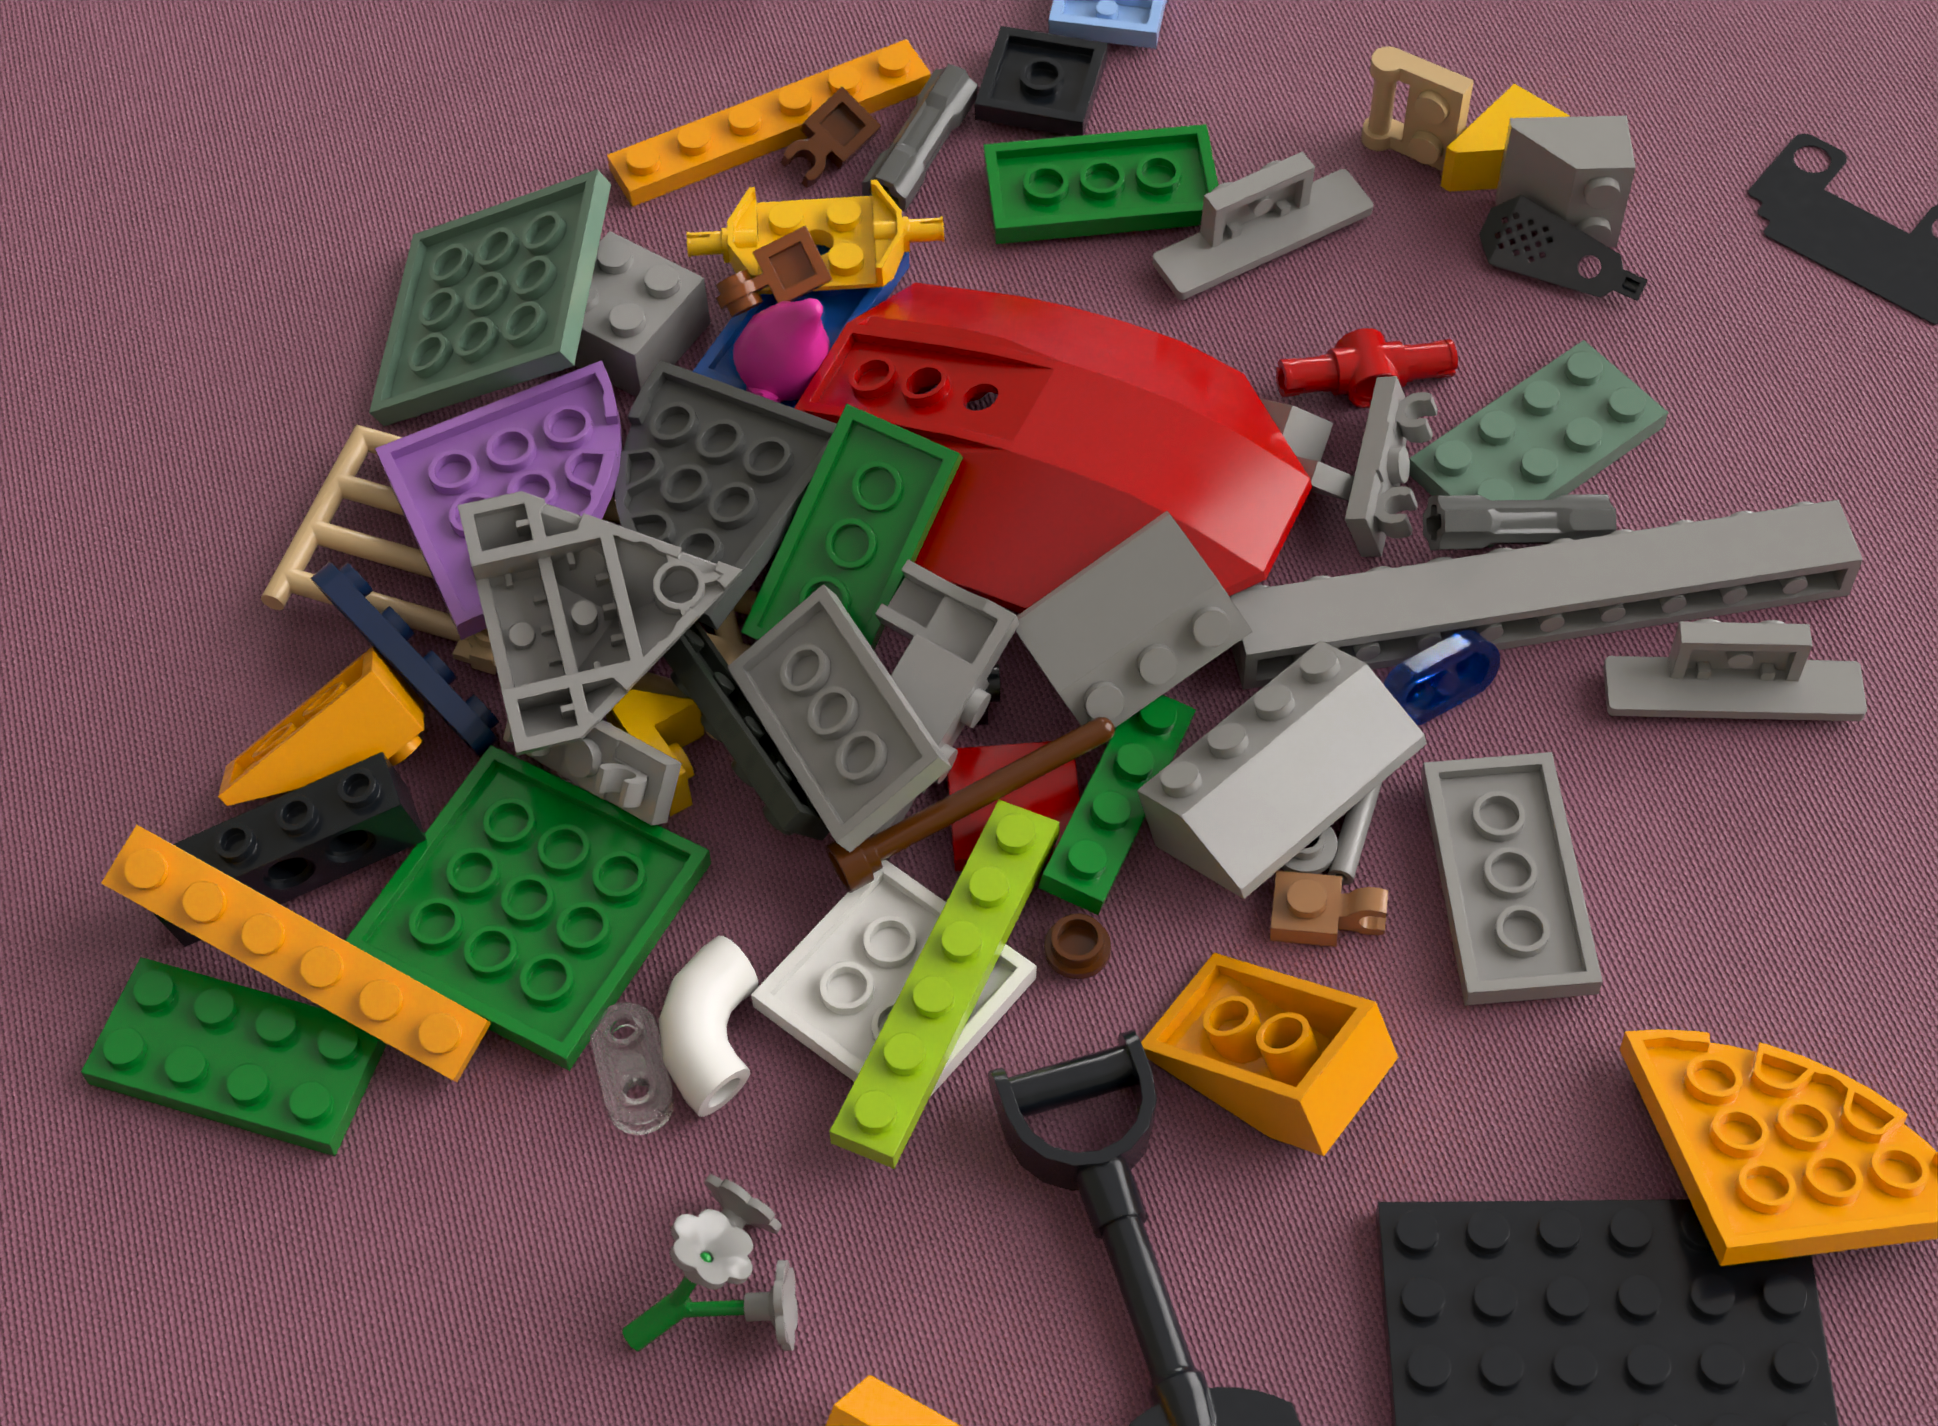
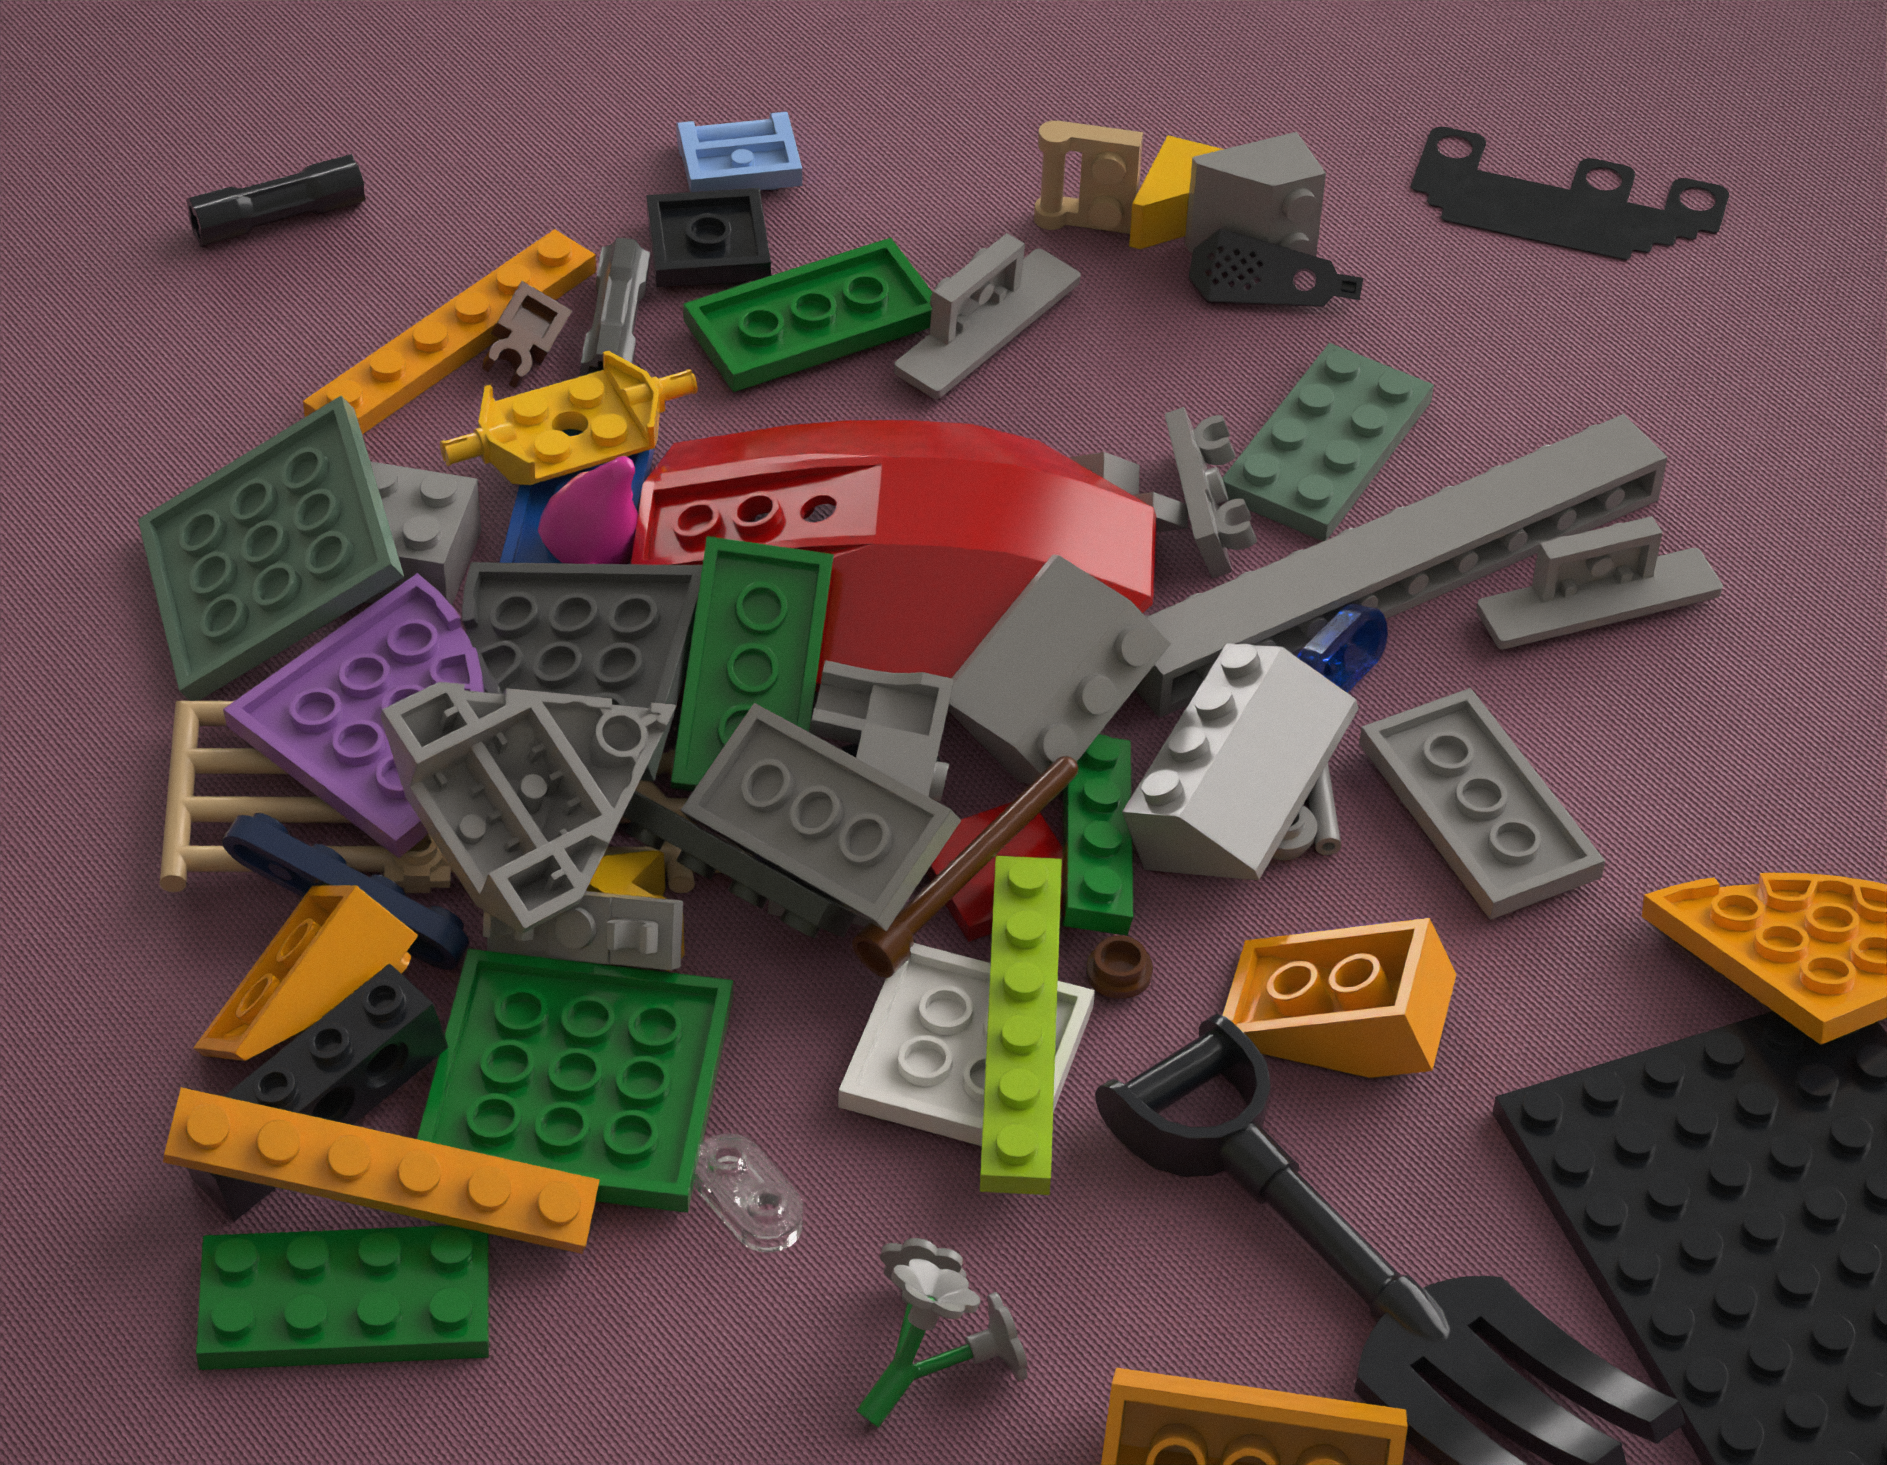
camera: 25 degrees left, 10 degrees down
(696, 1022) = (799, 1133): white cylinder -> none
(788, 267) = (563, 448): dark orange plate -> none
(1312, 909) = (1322, 881): medium nougat plate -> none
(1359, 360) = (1138, 411): red pin -> none
(1476, 522) = (1315, 512): dark grey axle -> none

